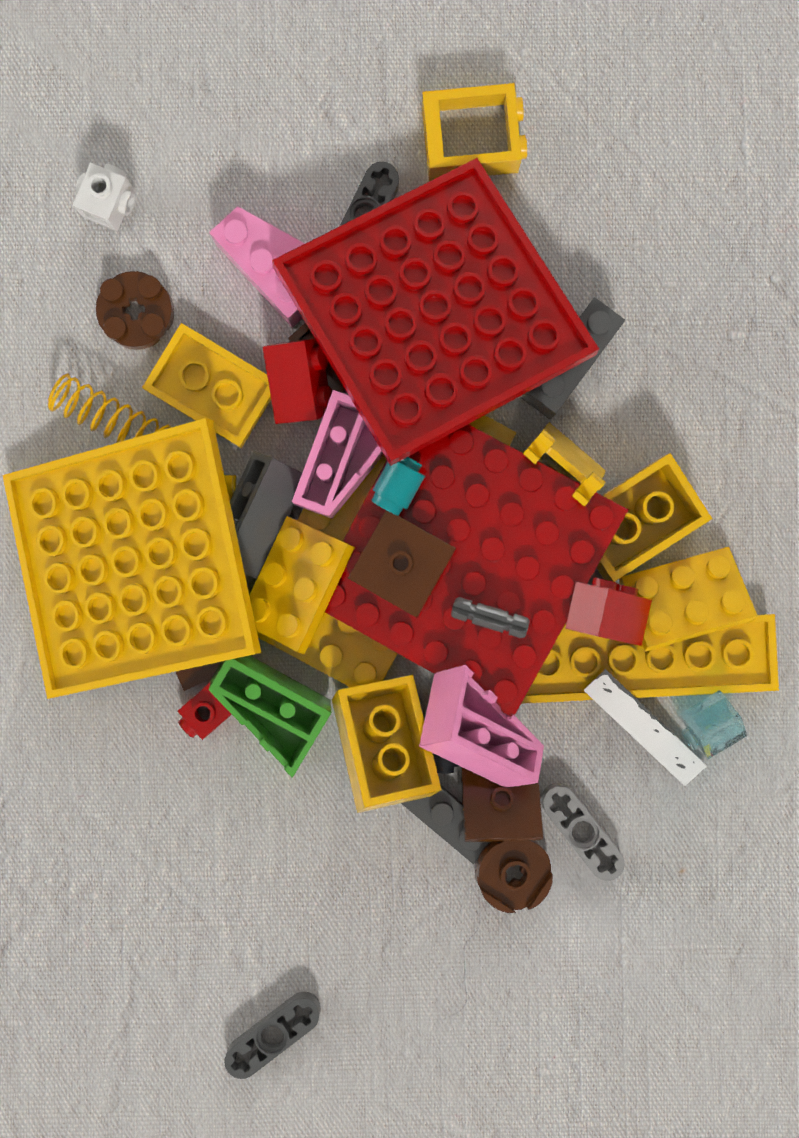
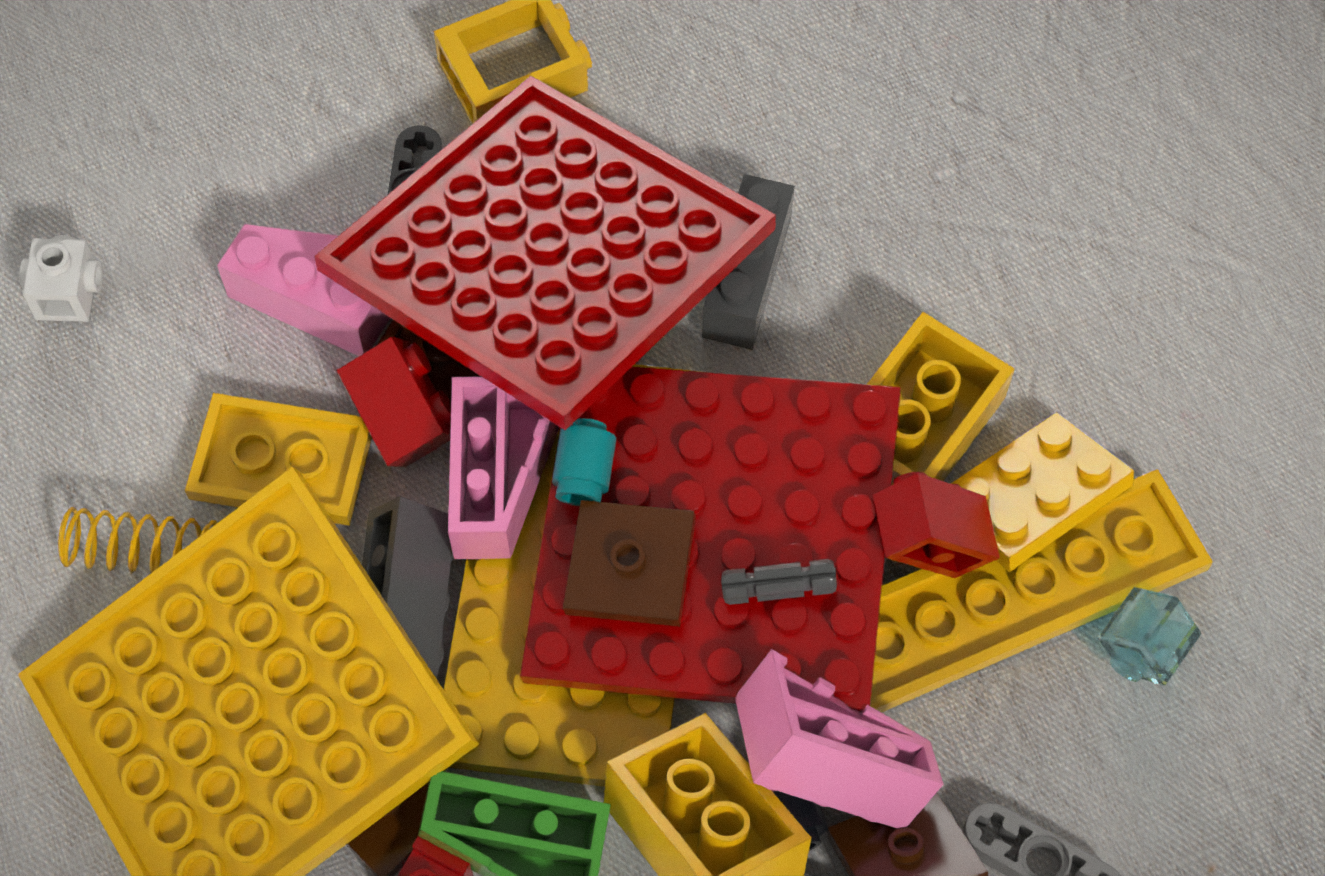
camera: 20 degrees left, 25 degrees down
(118, 294) = (136, 377): reddish brown plate -> none
(297, 583) = (497, 649): yellow plate -> none
(571, 458) = (754, 351): yellow flag -> none
(645, 727) = (1061, 681): white sticker -> none

